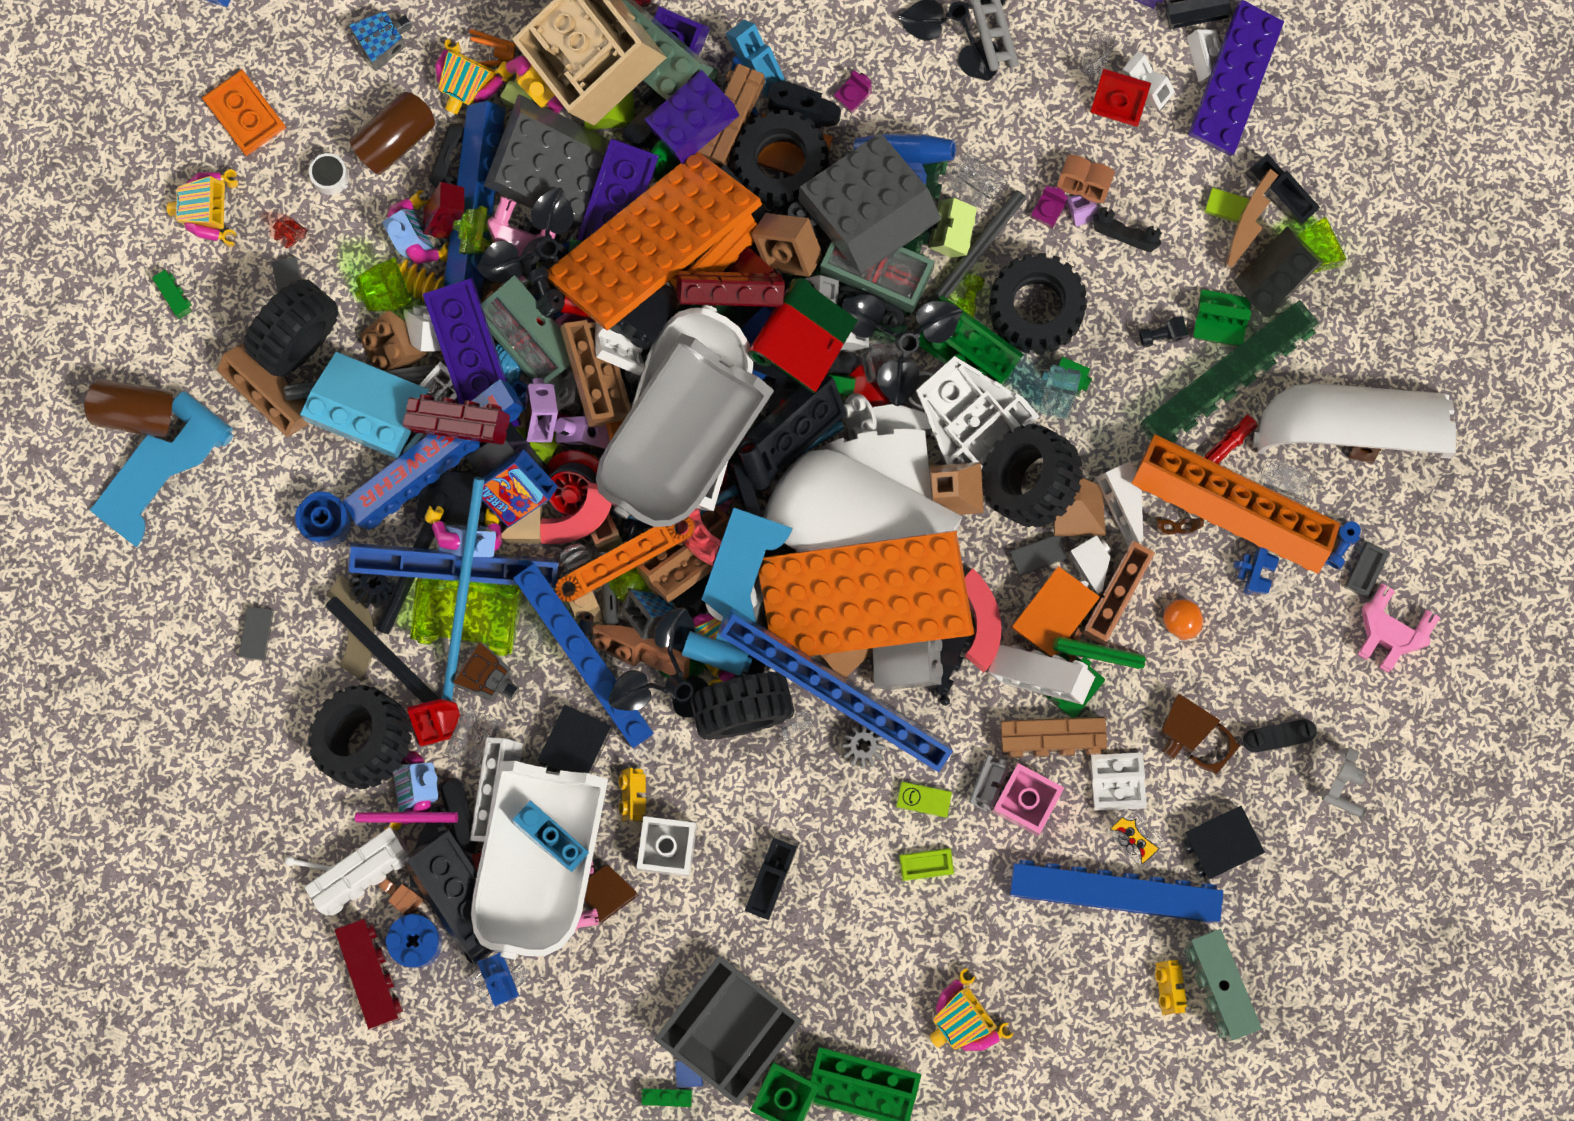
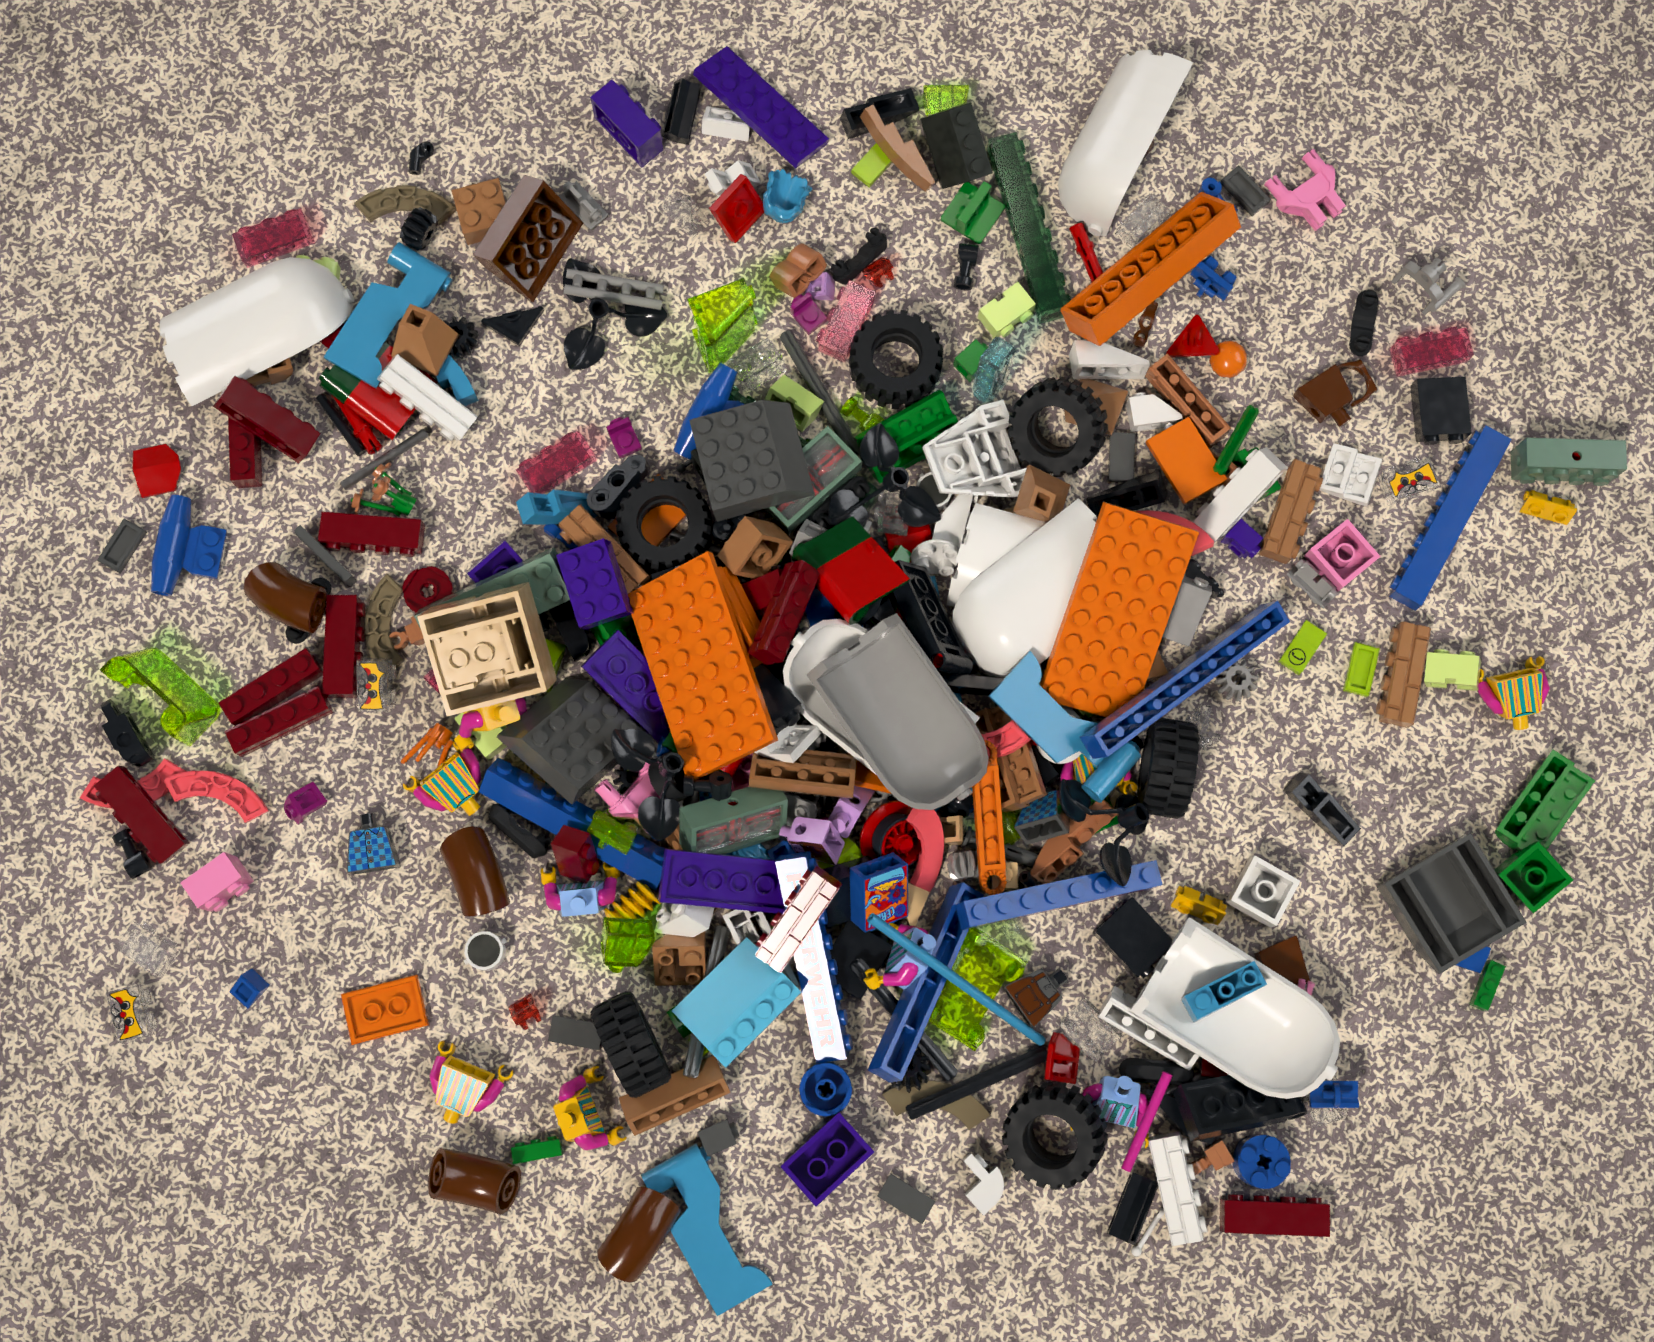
camera: 75 degrees left, 0 degrees up
(123, 251) = (473, 1180): none -> reddish brown brick
(214, 315) = (579, 1116): none -> torso
(244, 444) = (718, 1137): none -> dark grey brick
(262, 546) = (827, 1159): none -> dark purple brick
(295, 702) = (988, 1189): none -> white brick
(325, 841) = (1132, 1208): none -> black piece
(800, 42) = (556, 463): none -> clear pink brick
(937, 906) = (1404, 674): none -> medium nougat brick
(959, 949) = (1456, 669): none -> yellowish green brick
(992, 126) = (723, 321): none -> clear neon green windscreen
(1000, 576) = (1132, 494): none -> black slope
(1004, 700) = (1243, 540): none -> dark purple window
(1071, 244) = (845, 320): none -> clear pink brick
(1122, 252) = (878, 268): none -> clear red tile
(1134, 390) = (1003, 315): none -> yellowish green brick
(1154, 135) = (785, 196): none -> dark azure hair
(1186, 578) = (1194, 341): none -> red piece
(1280, 812) = (1431, 351): none -> clear pink brick

